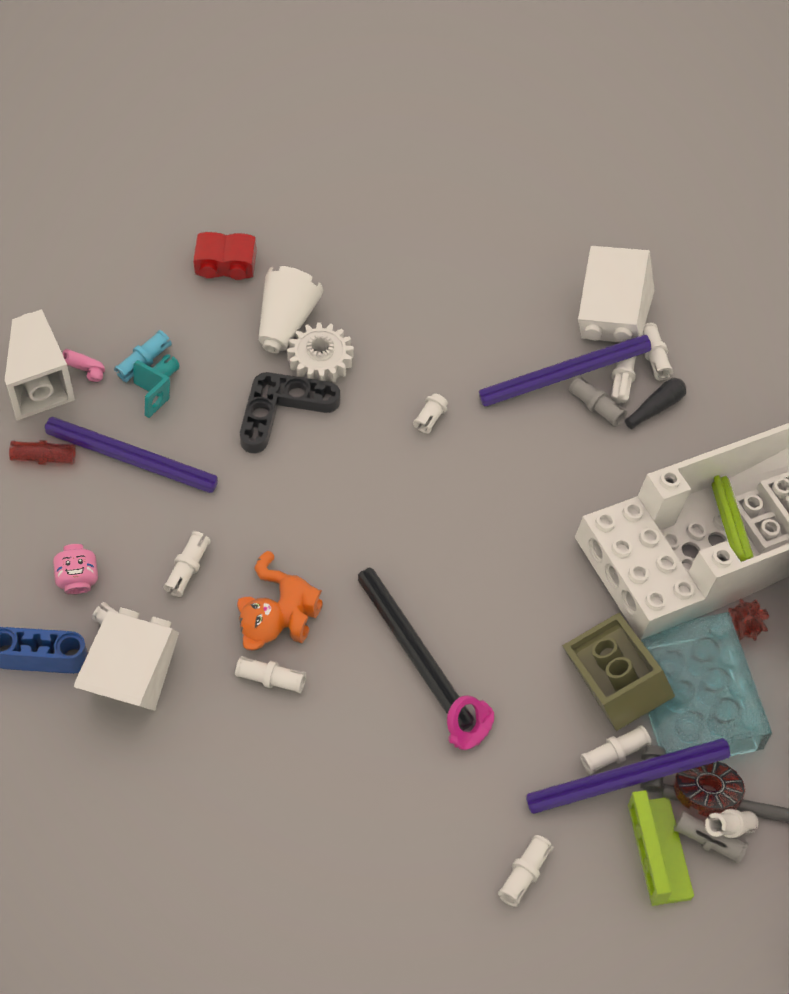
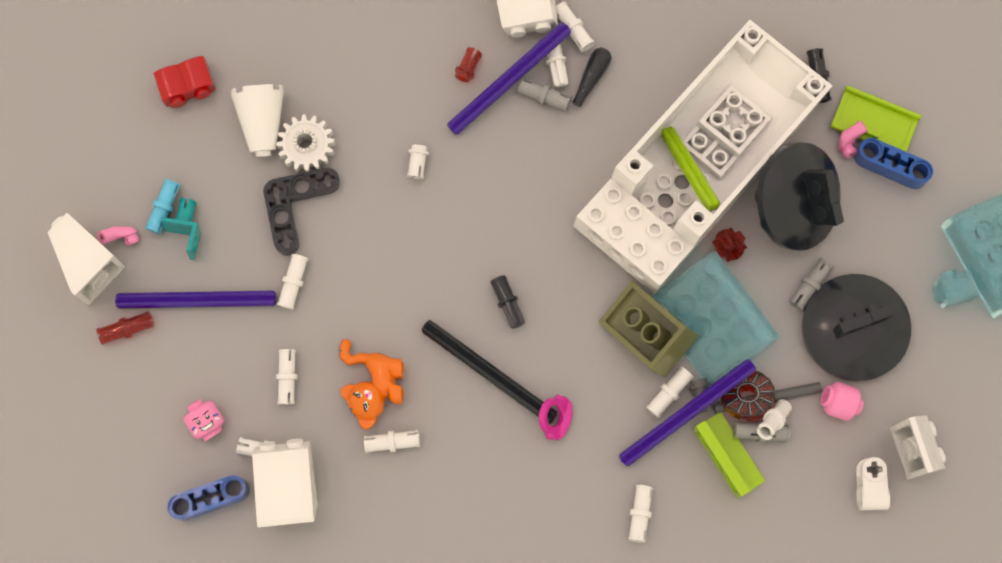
camera: 20 degrees left, 20 degrees up
(241, 475) = (292, 281): none -> white pin
(467, 583) = (508, 302): none -> black axle
(521, 349) = (466, 70): none -> clear red pin

